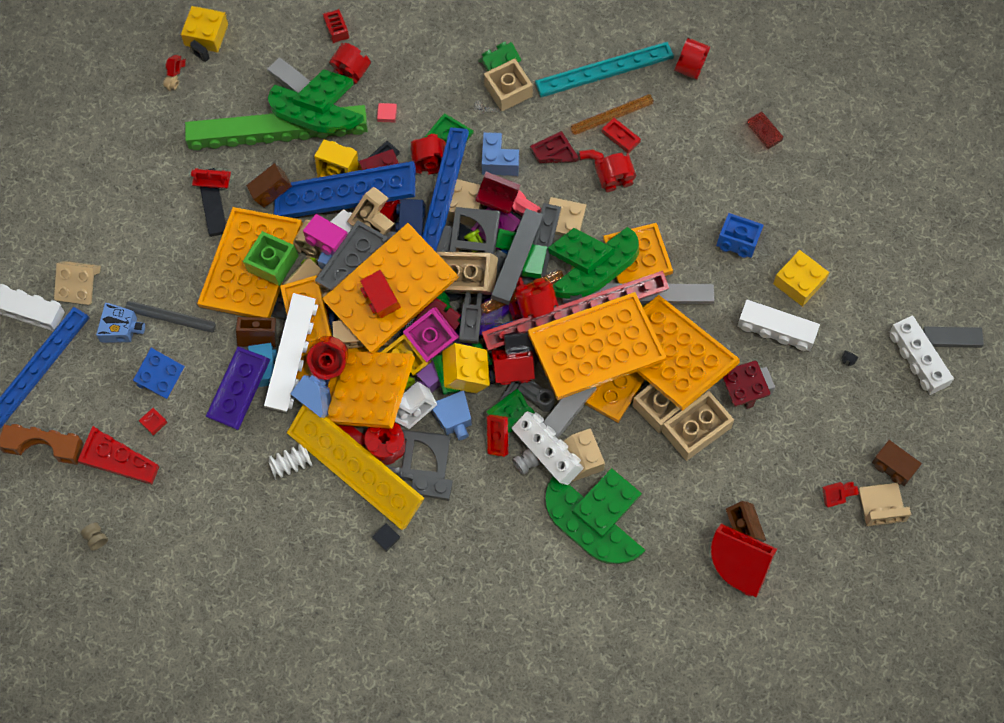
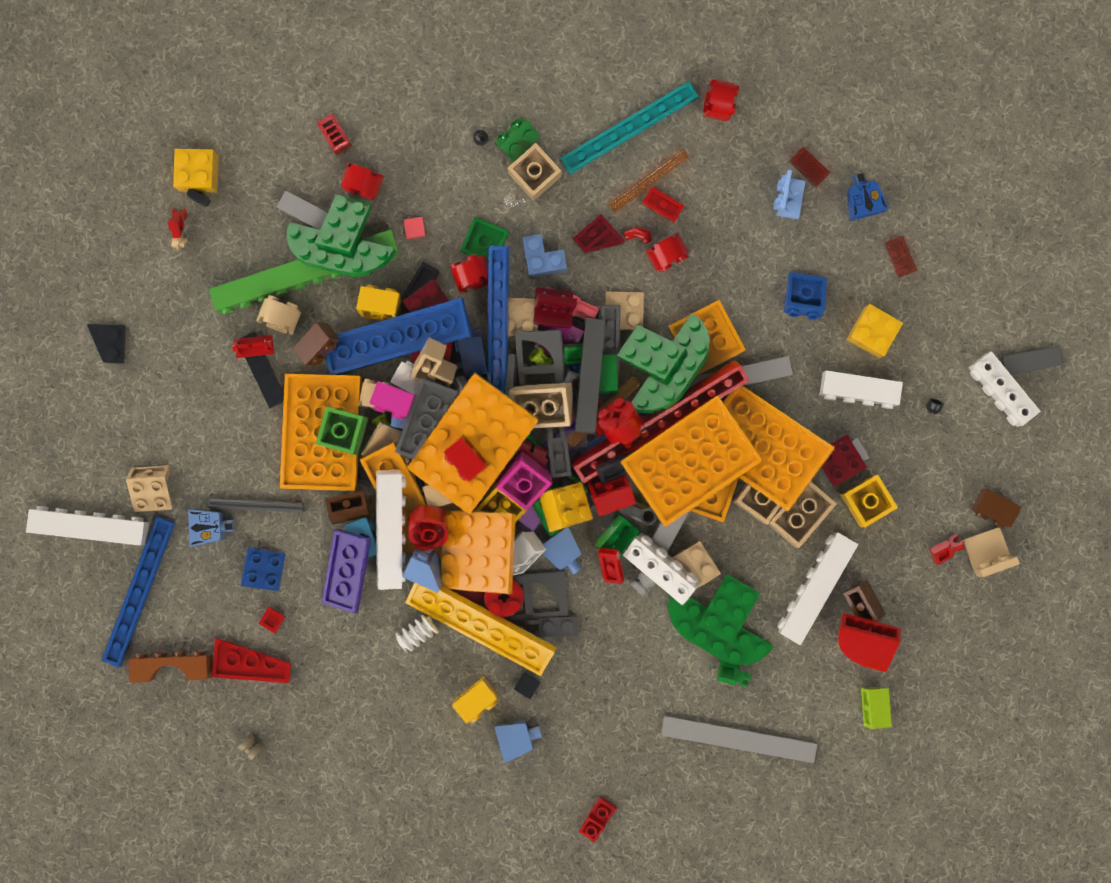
camera: 10 degrees left, 20 degrees up
(81, 152) = (109, 342): none -> black wing
(242, 155) = (279, 315): none -> tan brick
(331, 533) = (475, 700): none -> yellow brick
(361, 584) = (516, 738): none -> medium blue torso
(424, 686) = (597, 819): none -> red slope
(463, 53) = (476, 138): none -> black hinge
(591, 636) = (739, 739): none -> light grey tile
(596, 567) = (731, 675): none -> green plate
(699, 502) = (817, 587): none -> white brick
(740, 149) = (790, 196): none -> light blue bracket
(740, 632) = (876, 707): none -> lime hinge
(767, 428) = (868, 501): none -> yellow brick
(812, 165) = (865, 199): none -> blue torso
(838, 222) = (900, 257): none -> clear red tile

